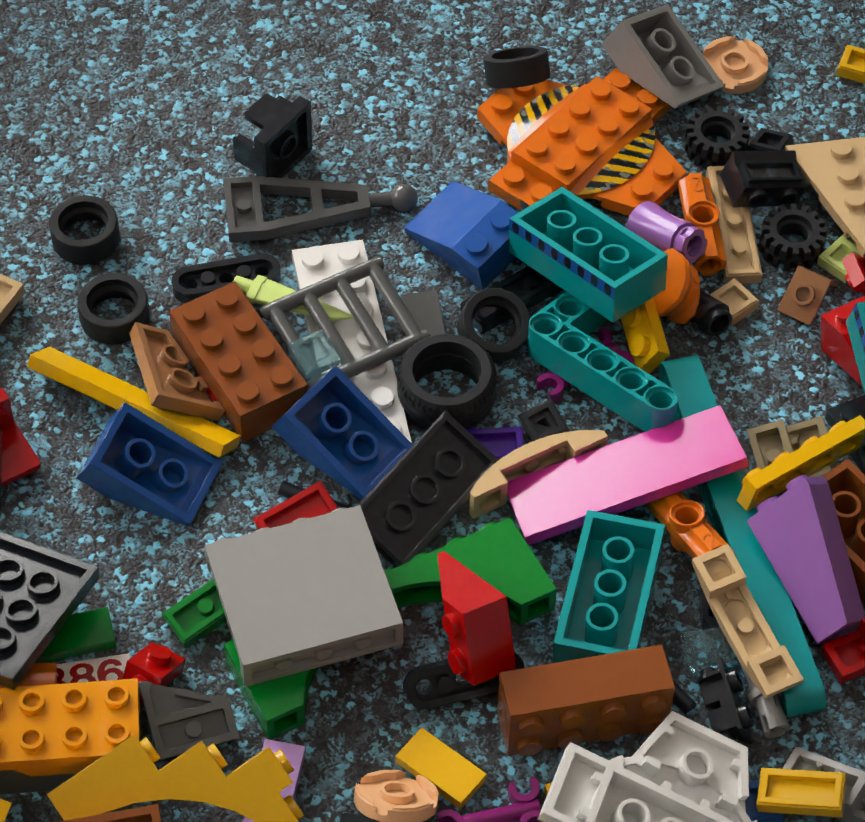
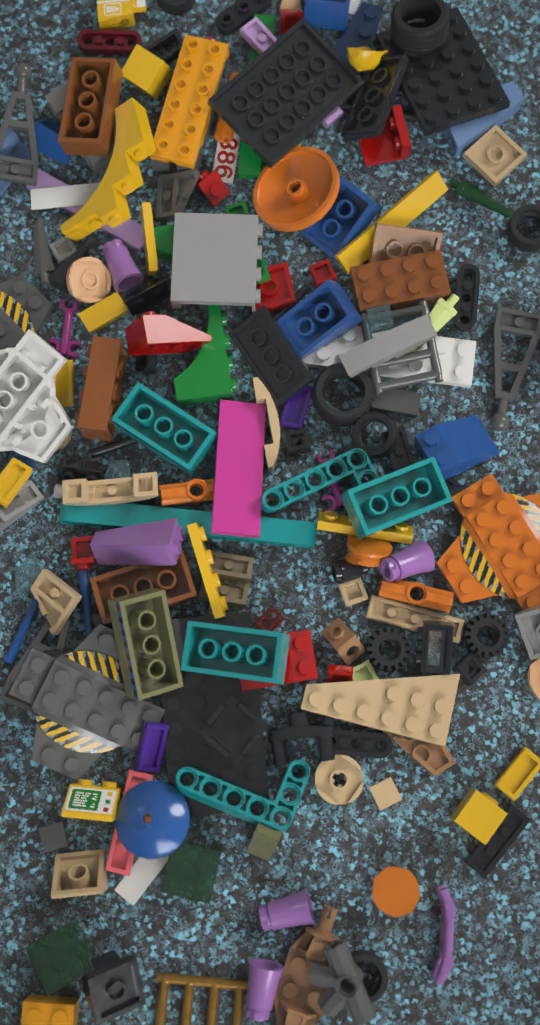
camera: 115 degrees right, 25 degrees up
(48, 314) = (475, 195): none -> dark green bar
(112, 286) = (470, 214): black tyre -> none
(131, 523) = (296, 190): none -> orange dish
(251, 474) = (322, 272): none -> red tile
(289, 724) = (149, 239): none -> yellow tile
(349, 757) = (121, 266): none -> medium lavender plant
(359, 323) = (388, 345): none -> light grey slope
(371, 697) = (154, 293): none -> black hinge
(828, 384) = (265, 616): none -> clear red piece

